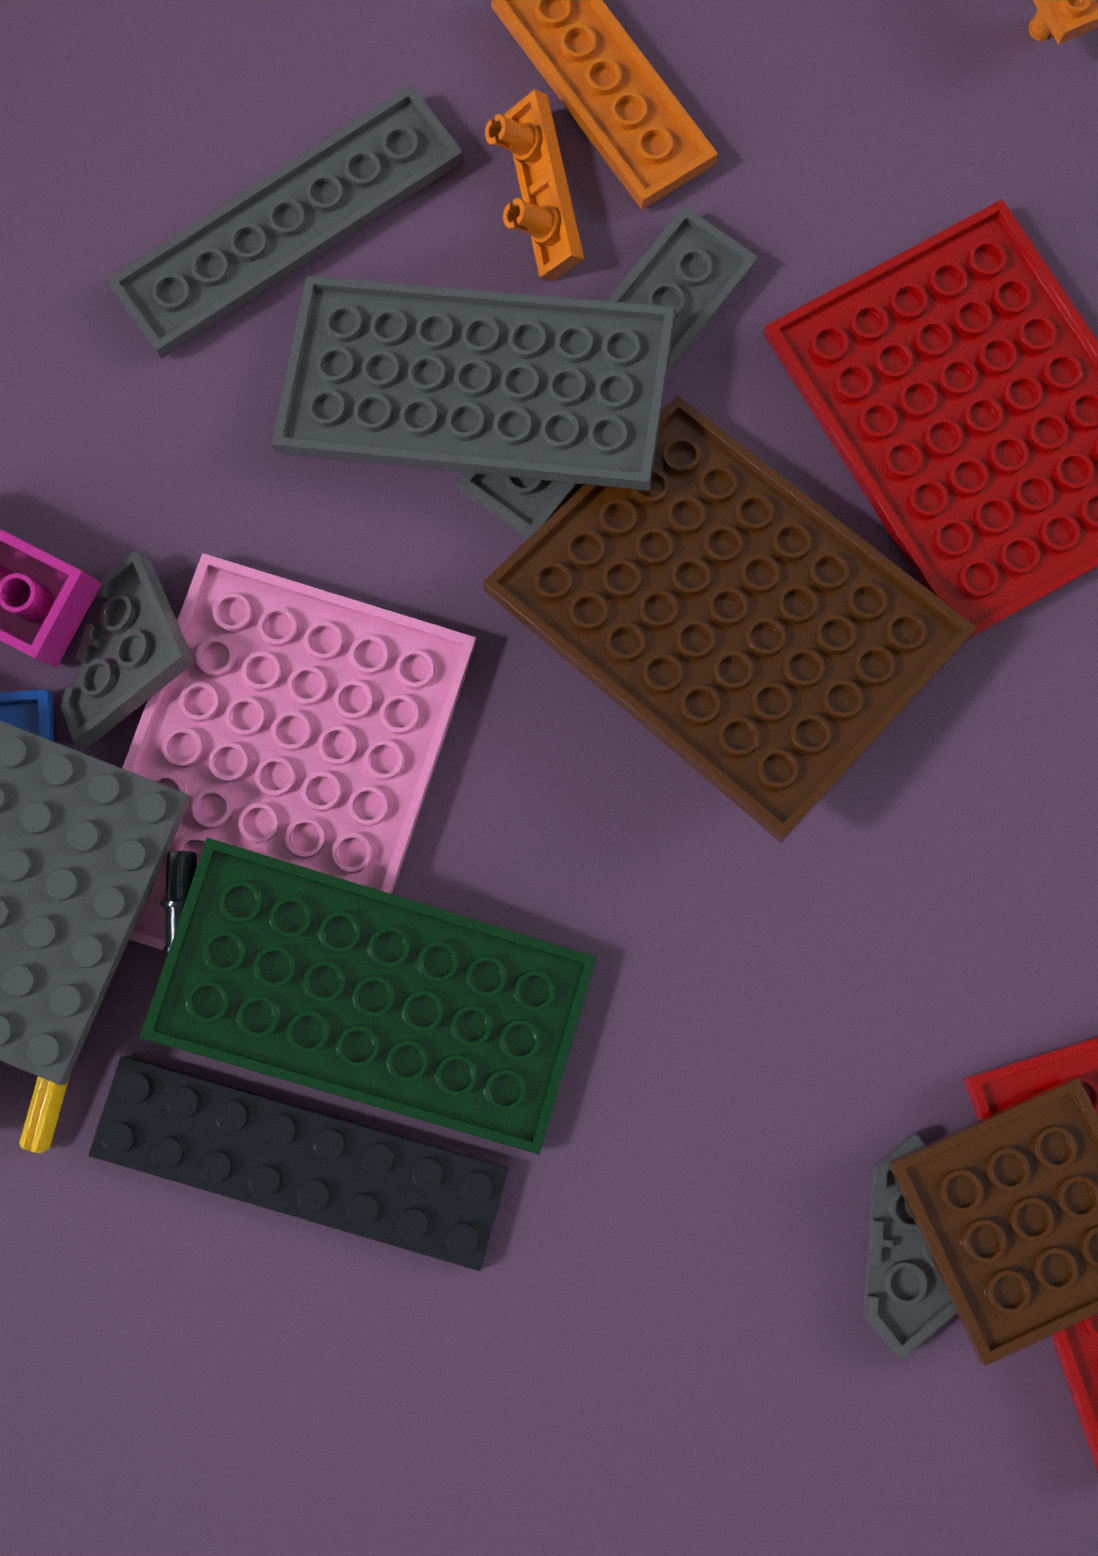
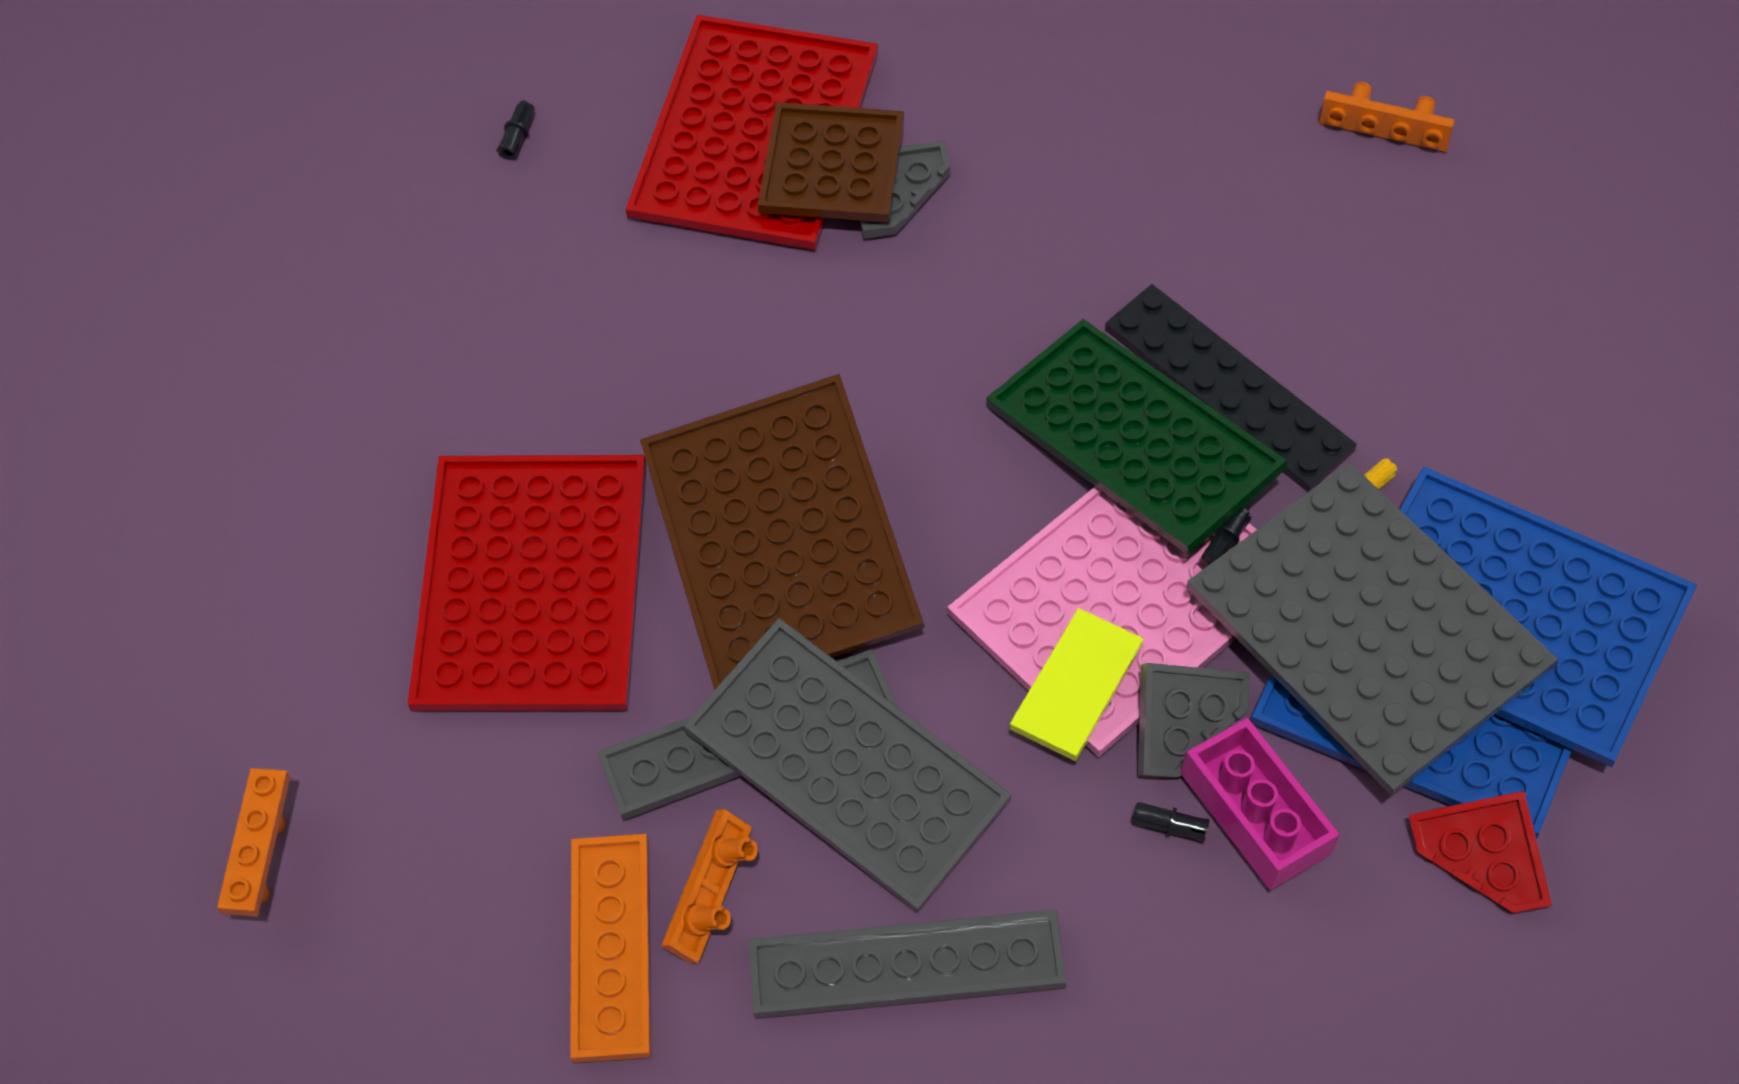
camera: 145 degrees left, 20 degrees down
(83, 520) = (1170, 821): none -> black axle
(266, 614) = (1076, 684): none -> neon yellow tile

